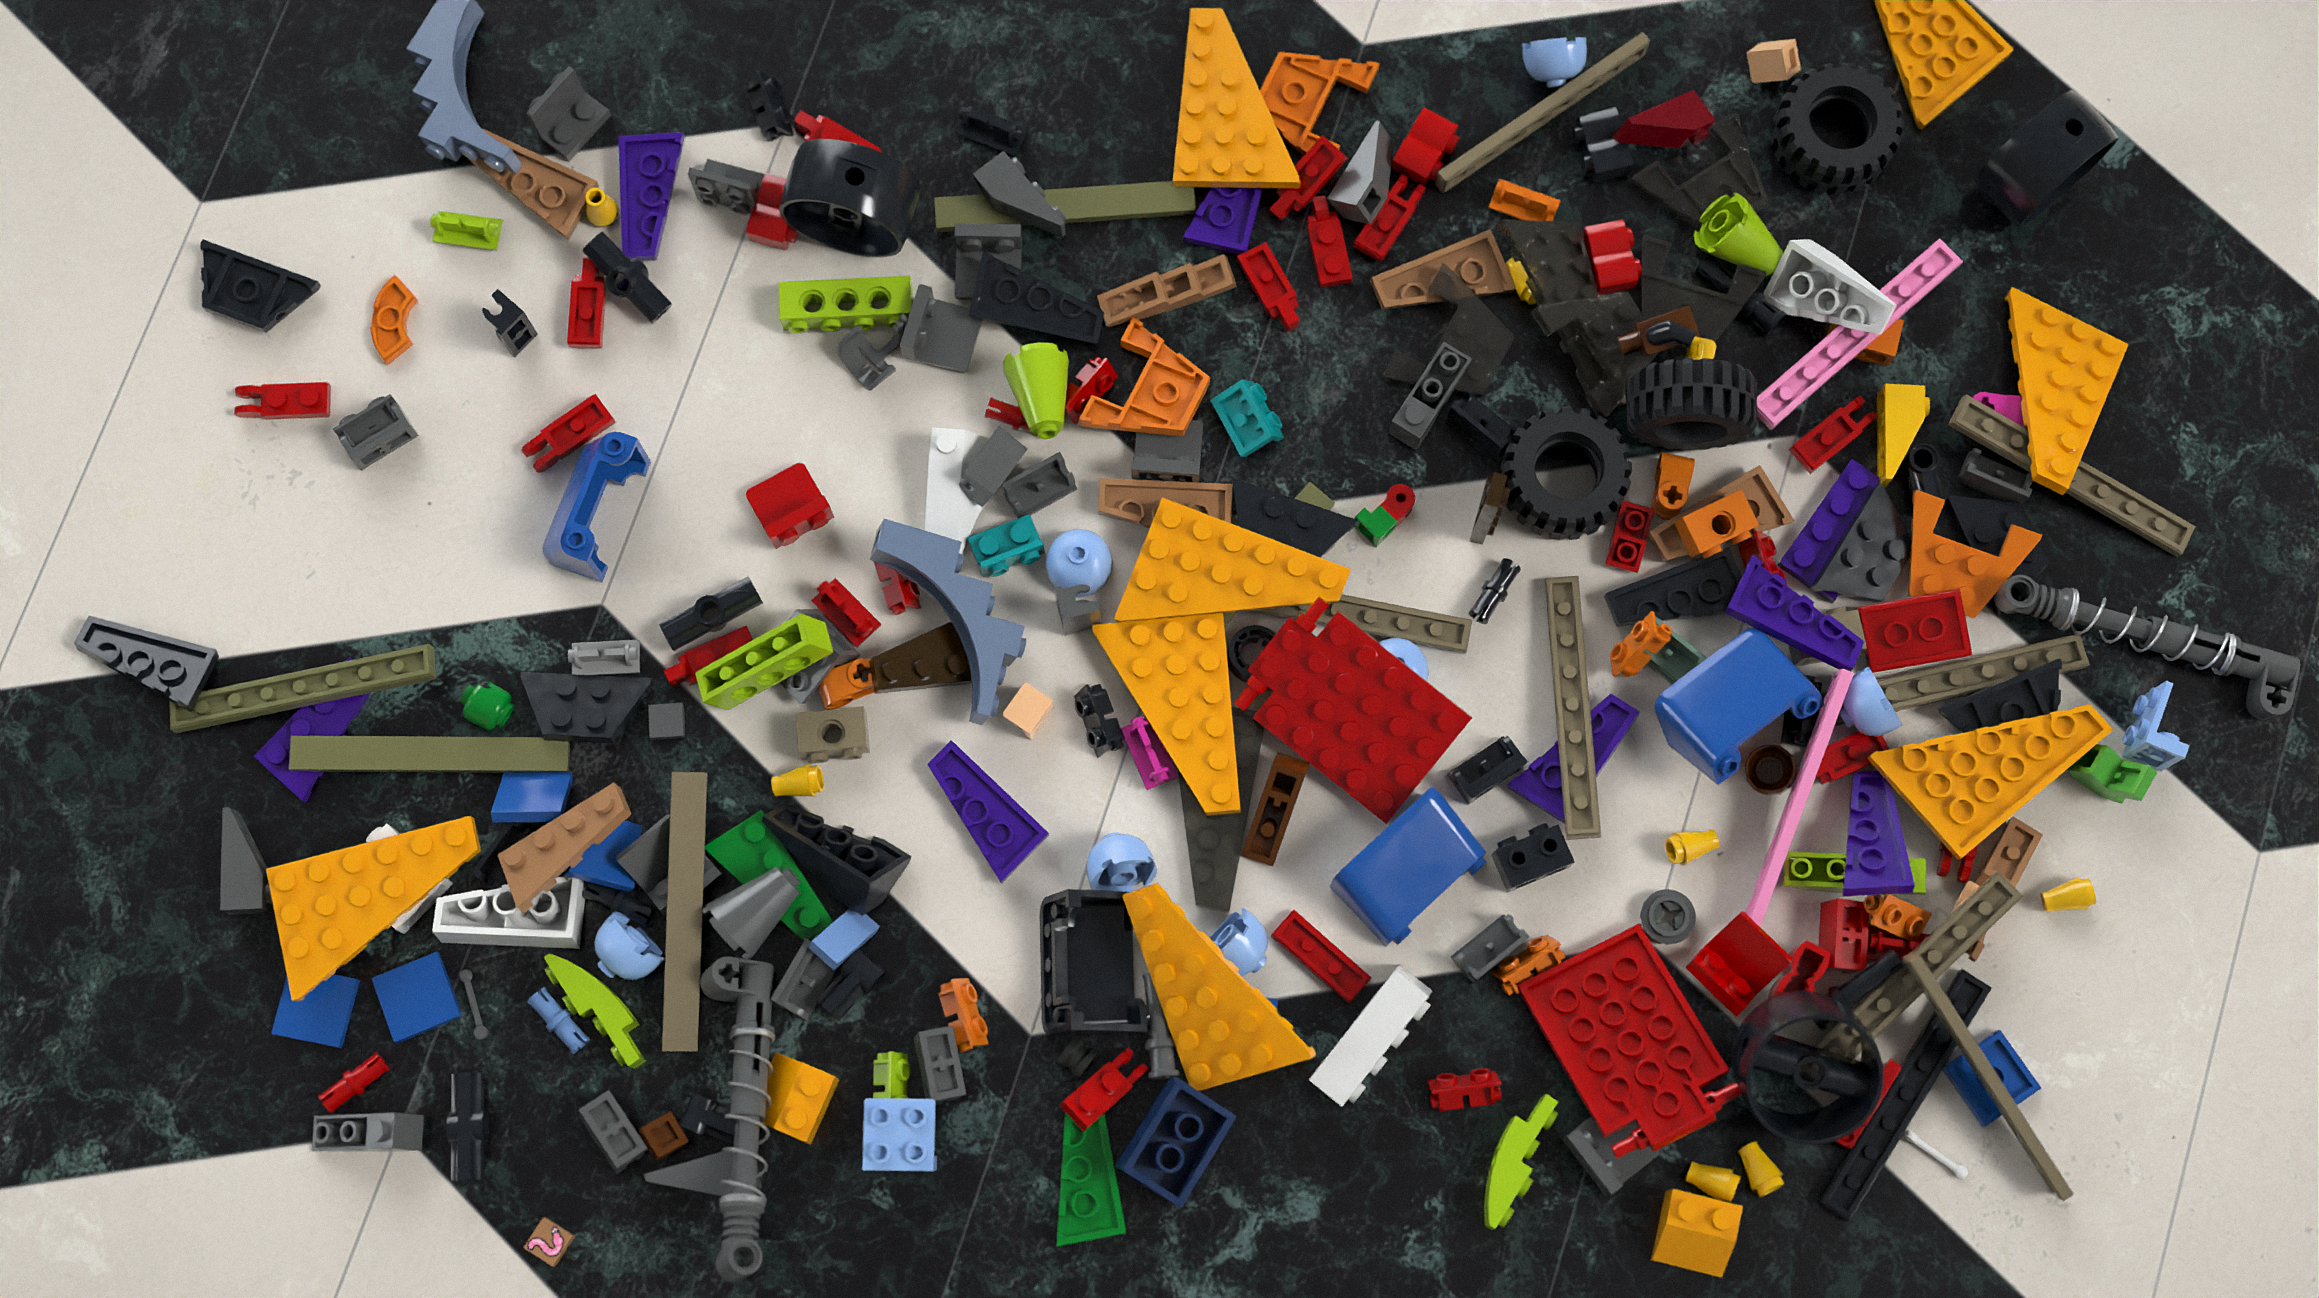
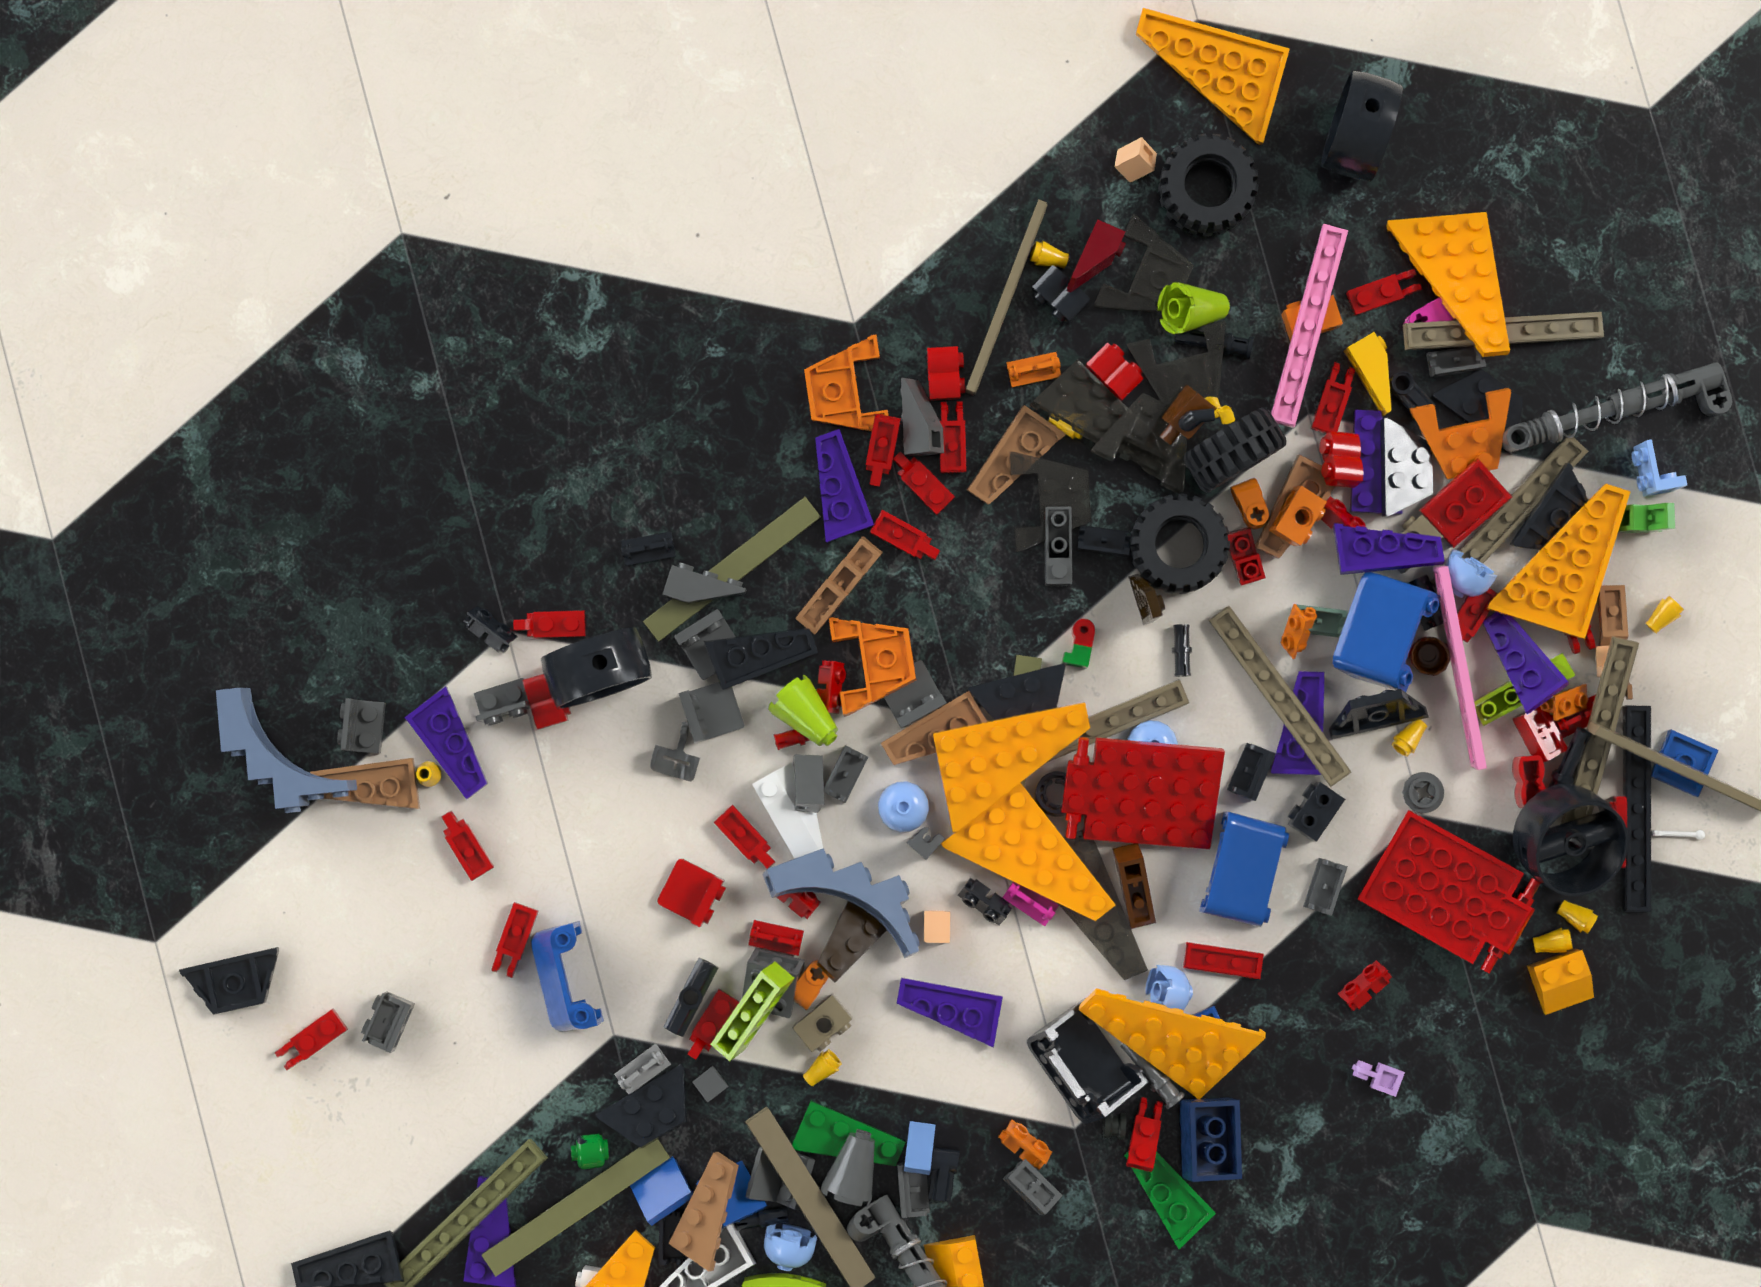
camera: 30 degrees left, 10 degrees up
(390, 319) = (341, 940): orange tile -> none
(466, 230) = (348, 846): lime hinge -> none
(511, 324) = (429, 896): black hinge -> none
(627, 277) = (480, 811): black piece -> none
(831, 293) = (599, 750): lime brick -> none
(847, 865) = (887, 1099): black wedge -> none
(886, 481) = (744, 836): none -> red hinge
(891, 1071) = (1019, 1229): lime hinge -> none
(899, 1134) = (1039, 1248): light blue bracket -> none
(1006, 546) = (849, 825): teal bracket -> none
(1120, 863) = (1059, 987): light blue cylinder -> none
(1223, 119) = (799, 442): light orange wing -> none
(1247, 416) = (948, 637): teal bracket -> none
(1371, 1035) = (1289, 991): white wedge -> none
(1418, 1209) = (1384, 1078): none -> lavender plate
(1507, 1172) = (1425, 1021): lime slope -> none
(1540, 954) = (1358, 869): orange hinge -> none
(1555, 60) = (991, 255): light blue cylinder -> none
(1597, 1159) = (1473, 976): dark grey bracket -> none
(1614, 94) = (1047, 255): none -> yellow cone
(1671, 790) = (1377, 712): none -> black wing
(1682, 592) = (1299, 574): black wing -> none
(1738, 963) = (1486, 797): red bracket -> none
(1803, 497) = (1341, 459): none -> red brick
(1826, 289) = (1267, 306): white wedge -> none
(1959, 357) = (1380, 292): none -> red hinge

